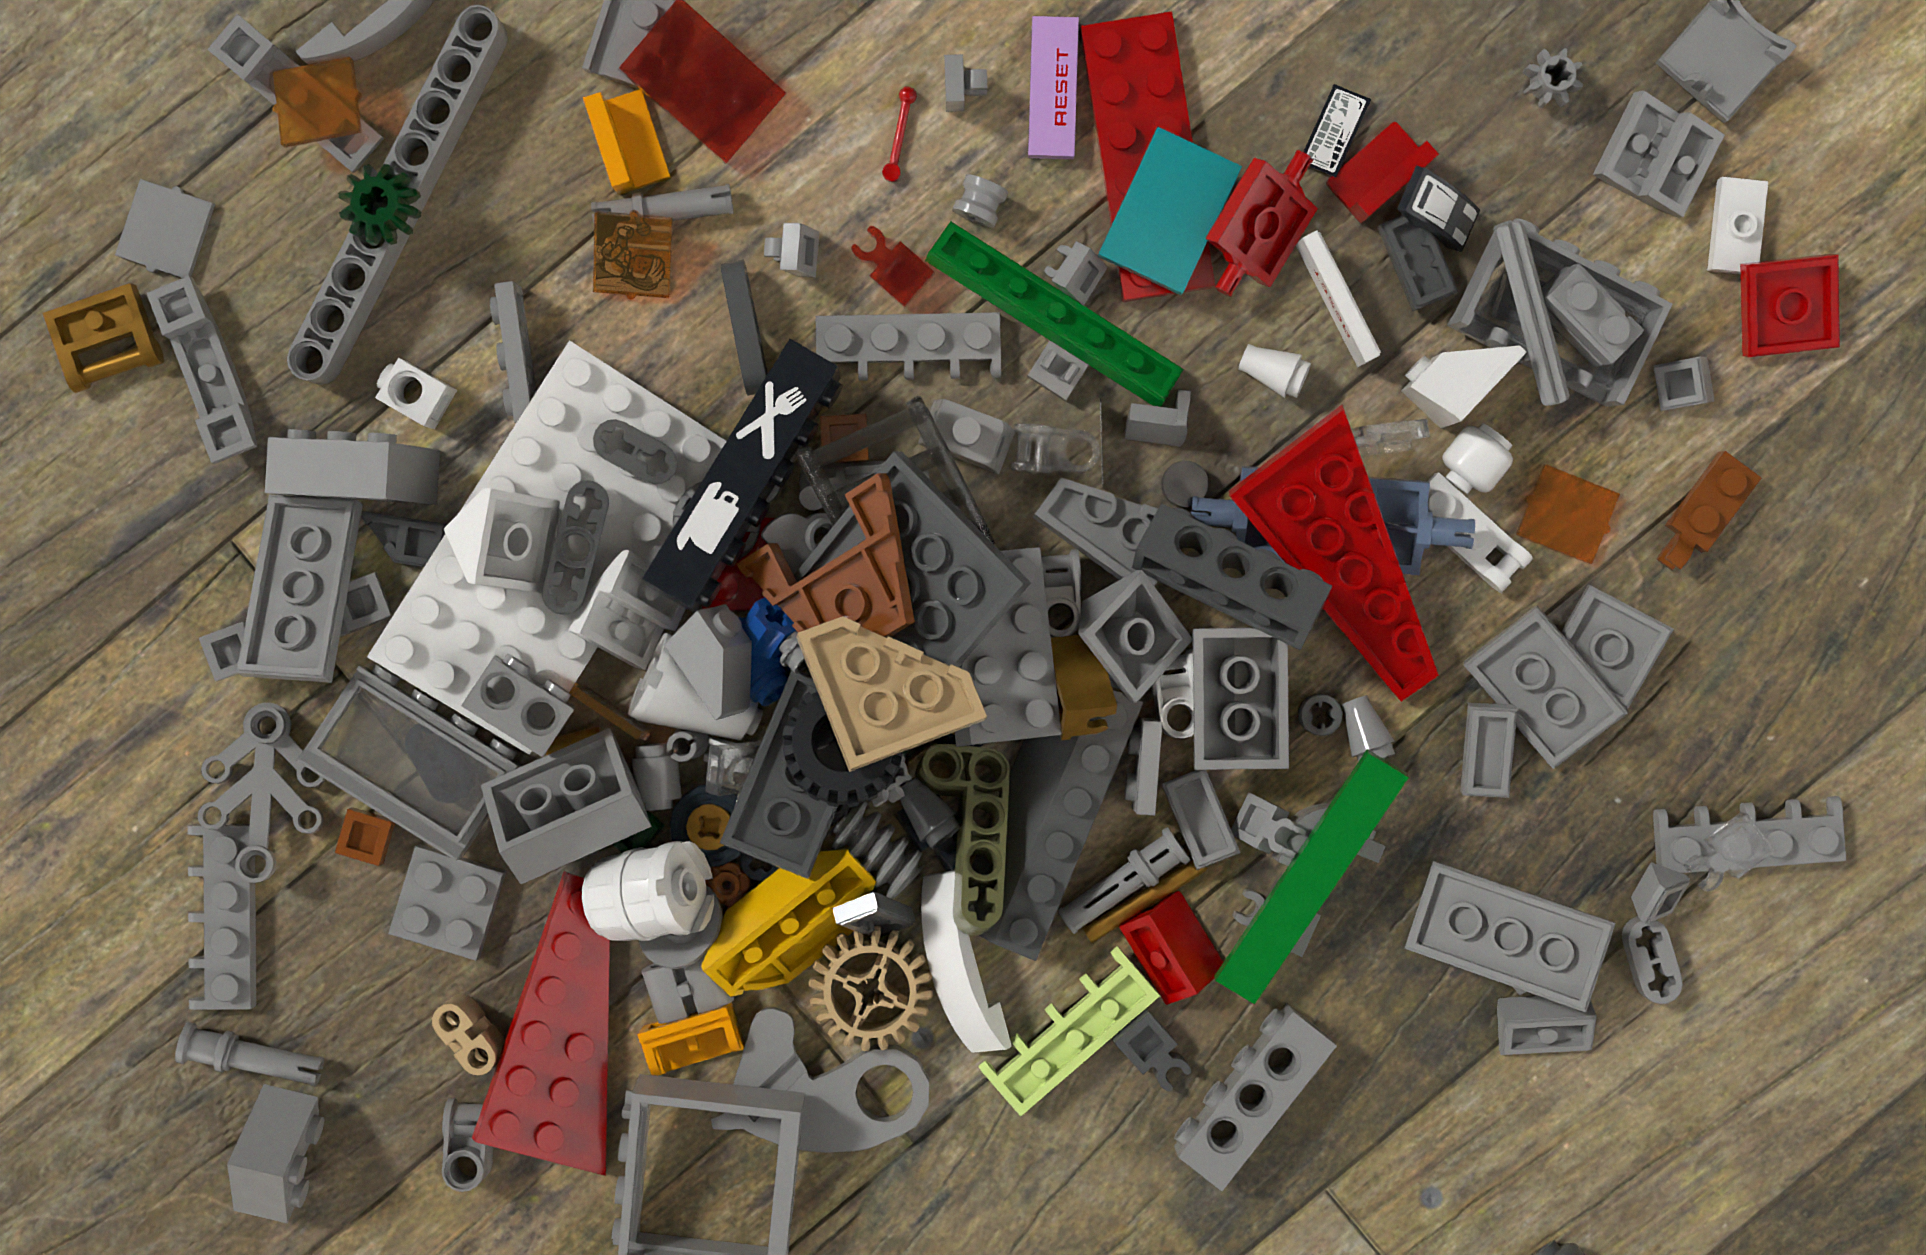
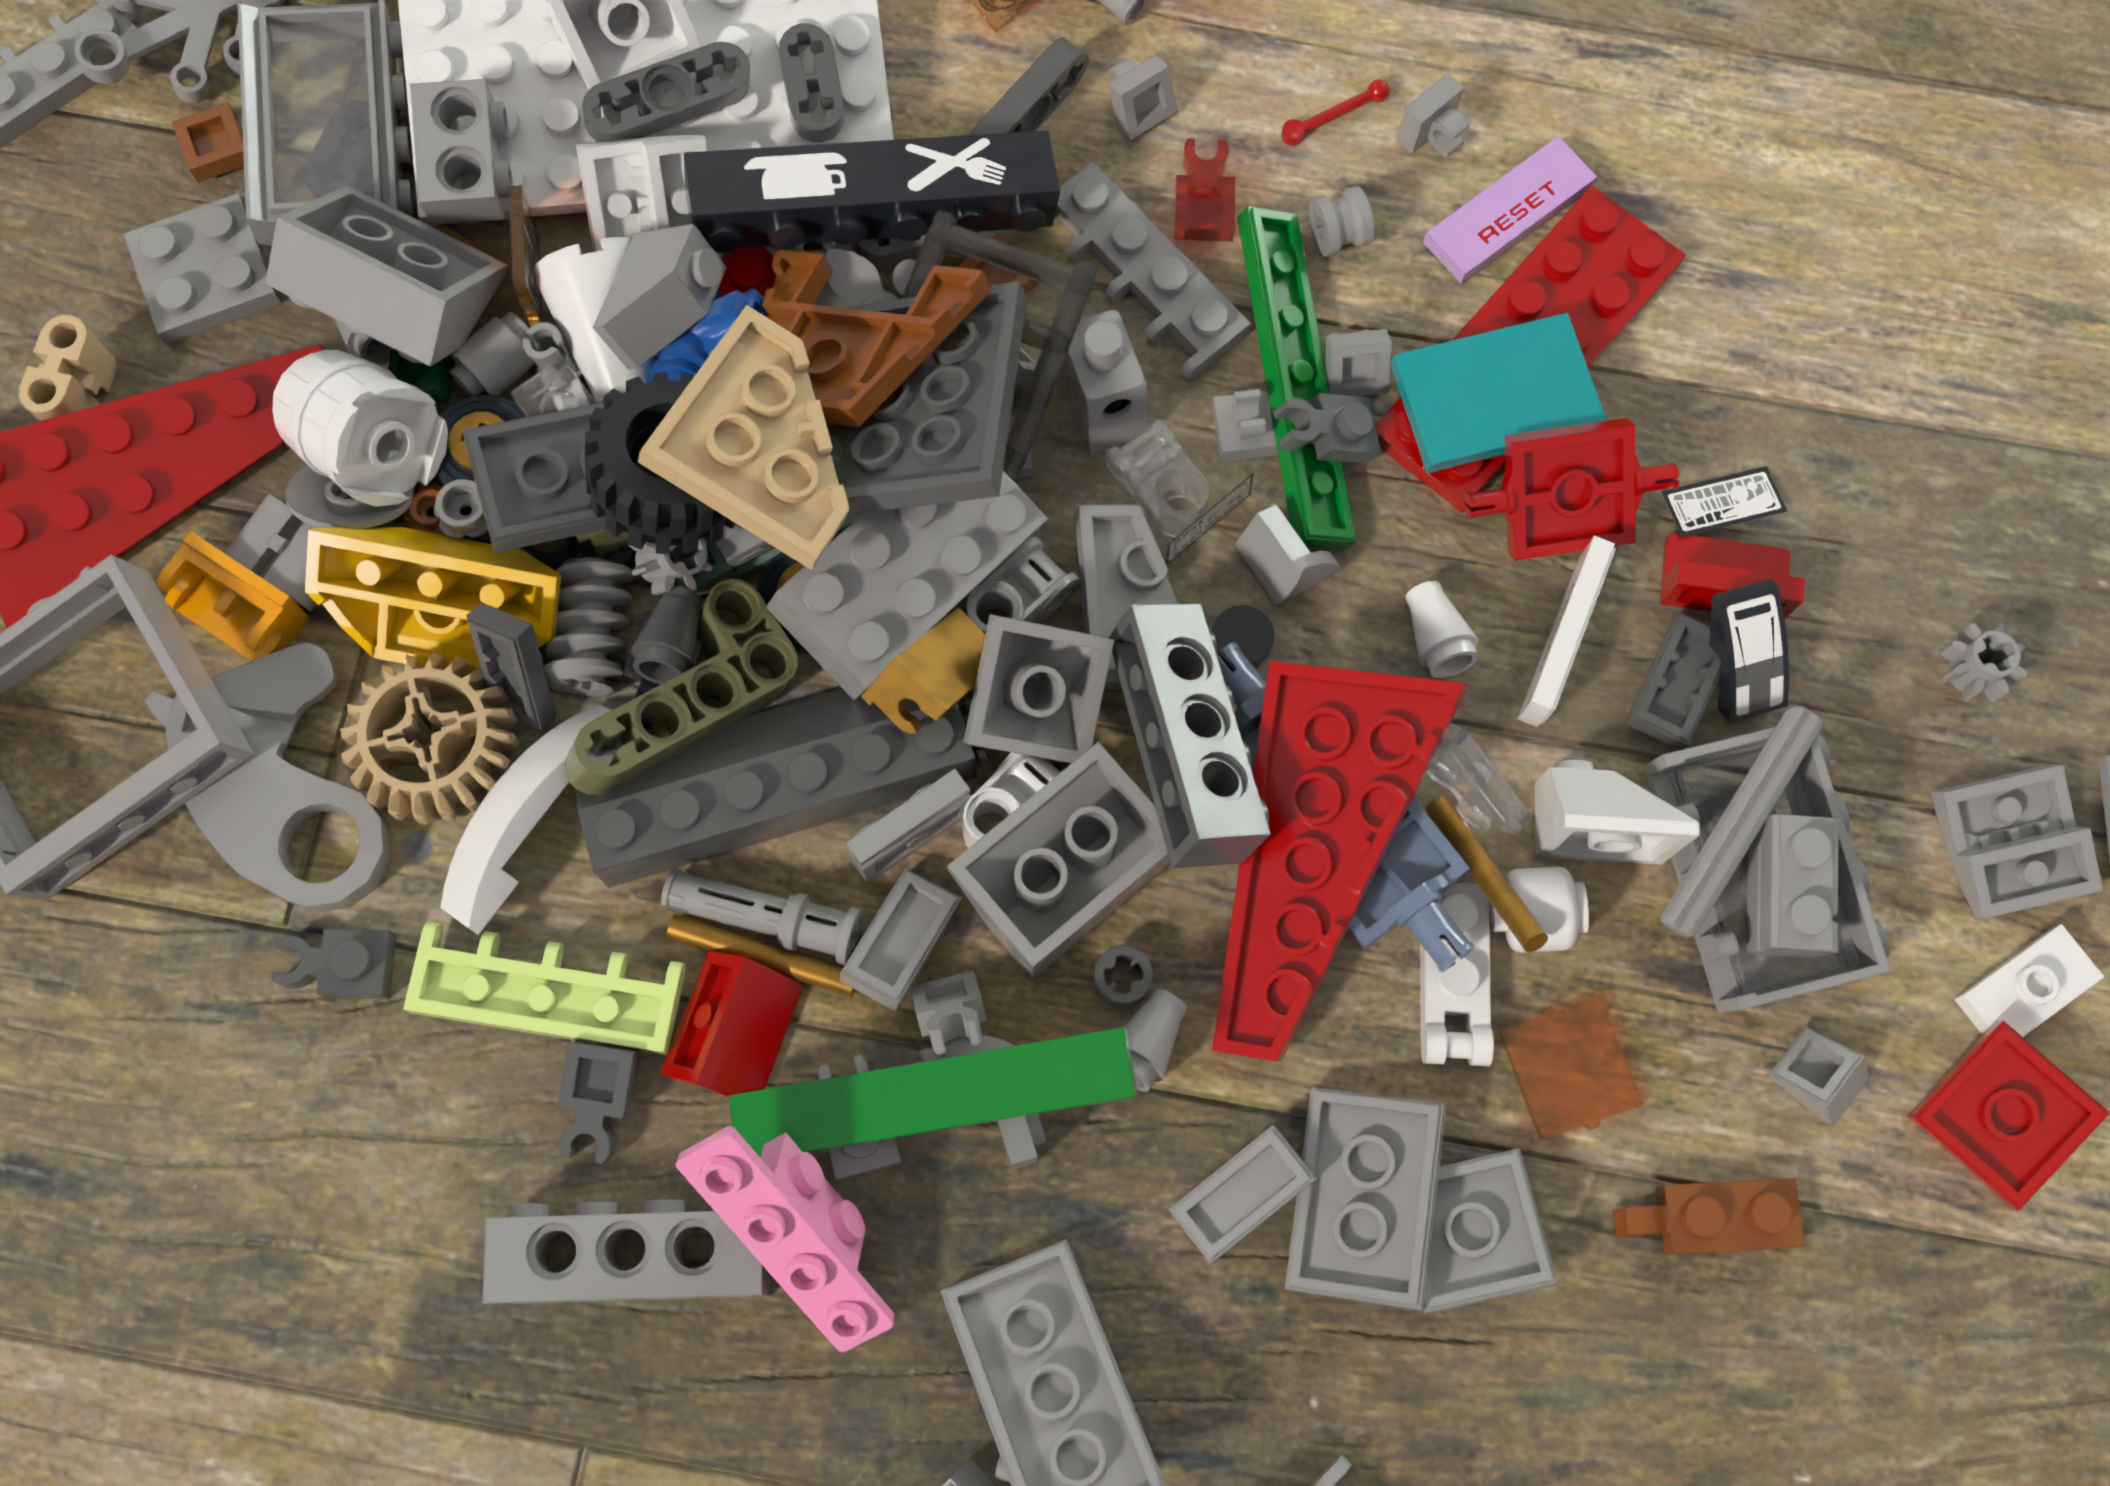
camera: 50 degrees right, 15 degrees down
(741, 878) = (448, 508): none -> light grey plate
(963, 1125) = (346, 966): none -> dark grey plate
(1108, 325) = (1336, 425): none -> dark grey plate
(1318, 1001) = (793, 1228): none -> bright pink bracket
(1438, 474) = (1487, 875): none -> pearl gold bar

